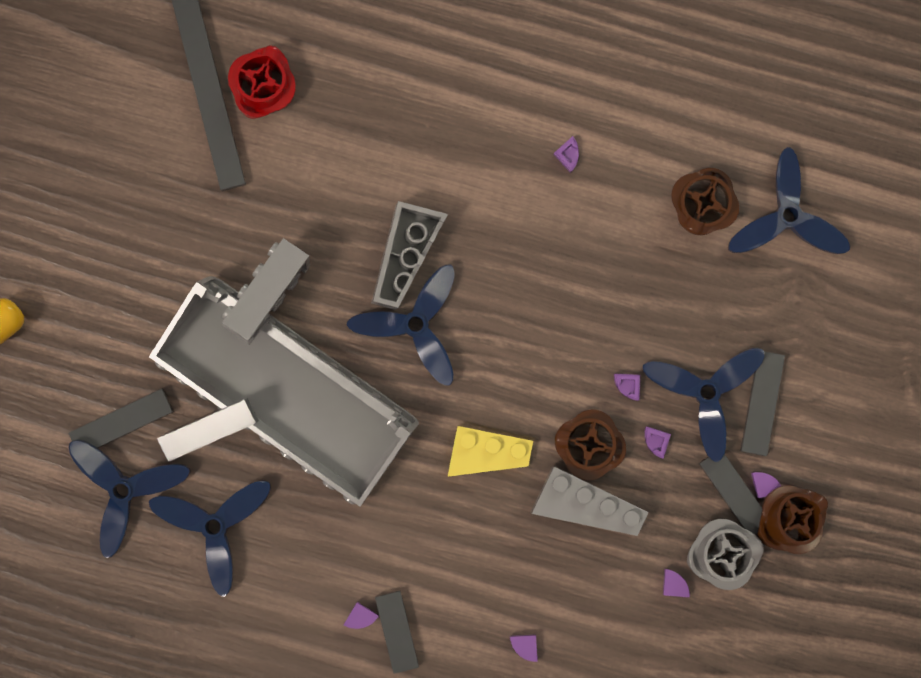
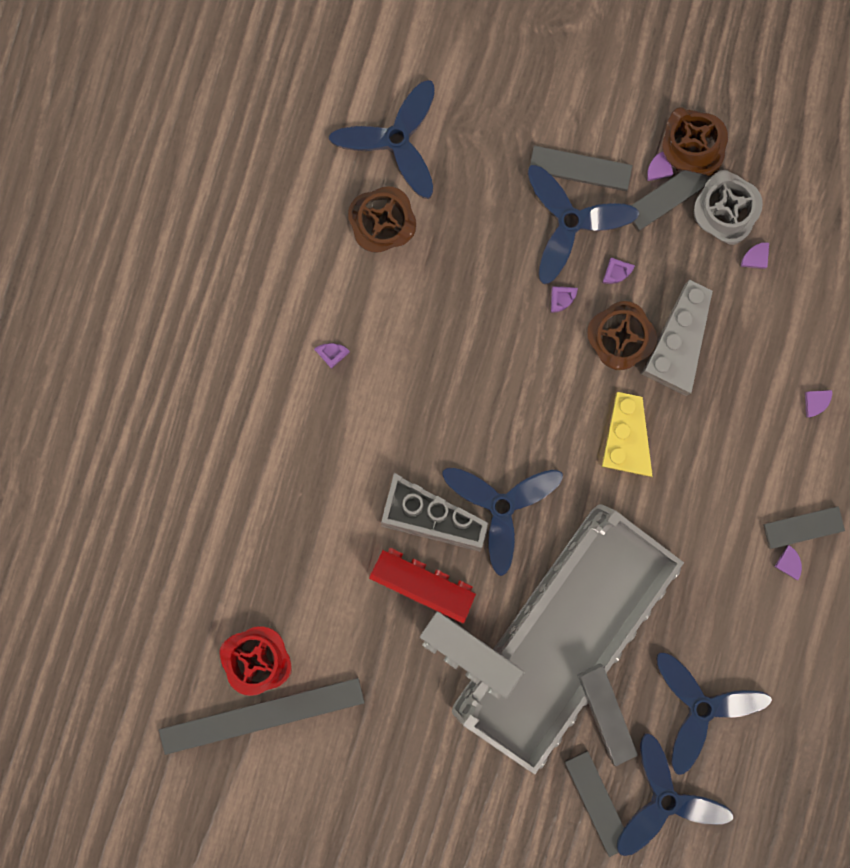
camera: 90 degrees left, 0 degrees up
(335, 244) = (423, 586): none -> red slope

